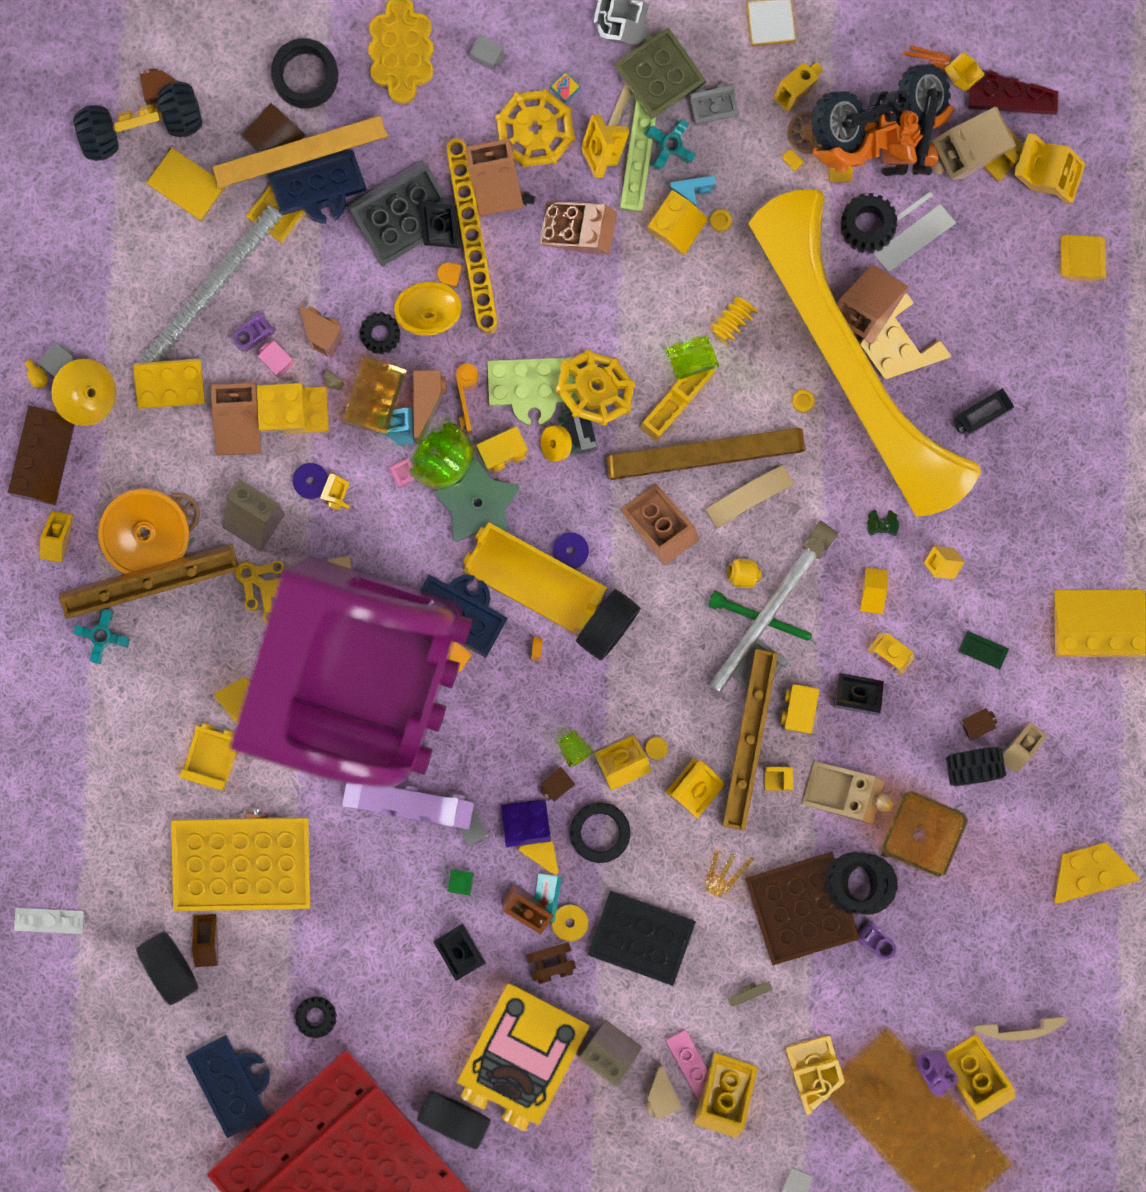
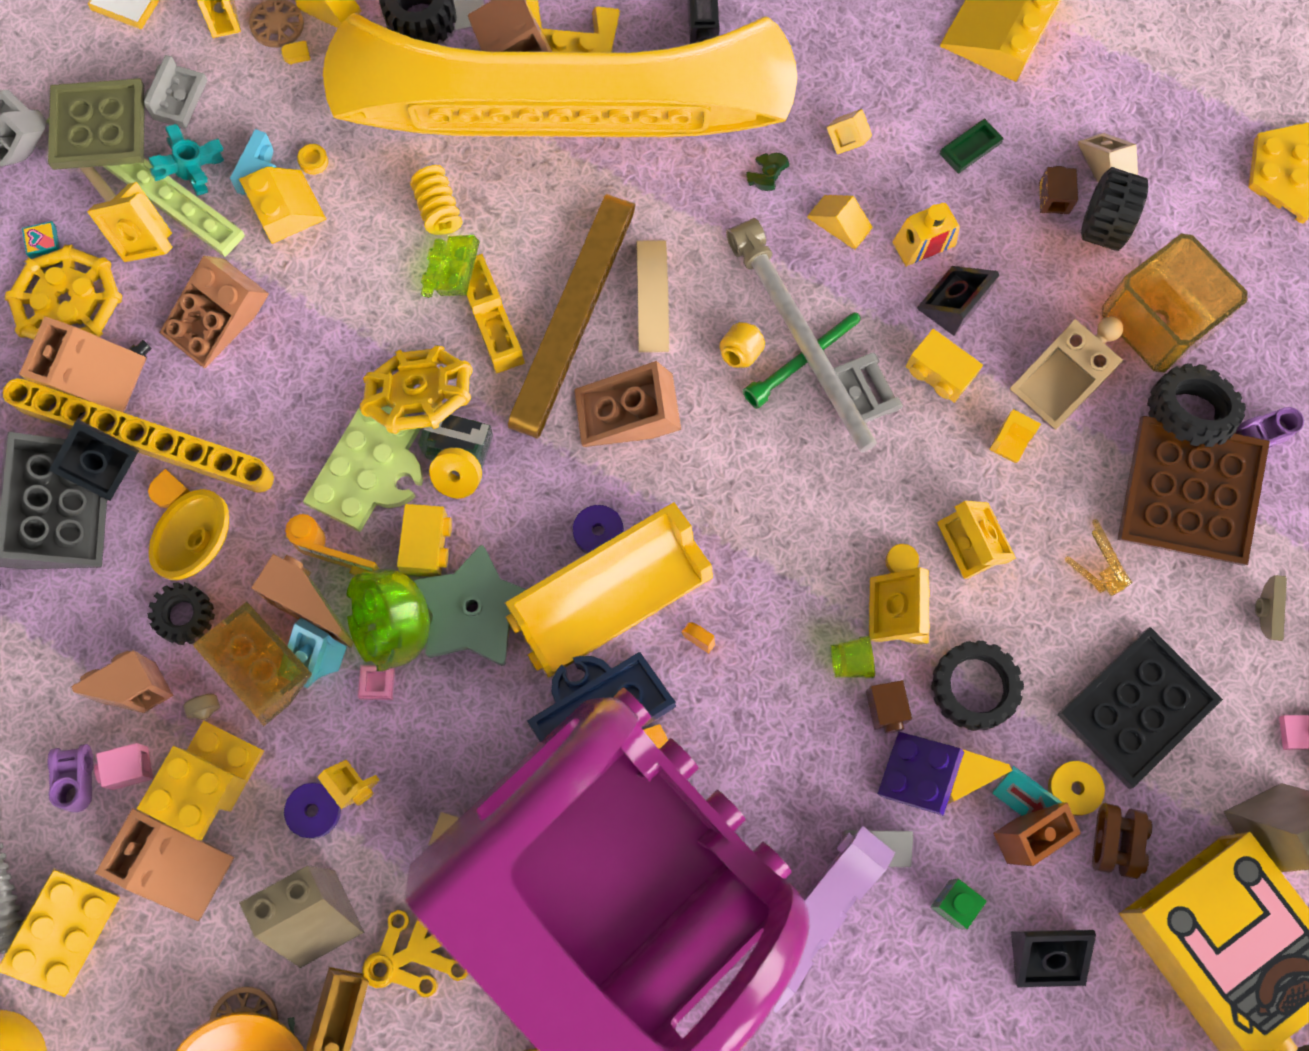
camera: 65 degrees left, 10 degrees down
(608, 624) = (722, 526): black tyre -> none
(750, 739) = (953, 441): pearl gold tile -> none
(803, 401) = (575, 181): yellow tile -> none

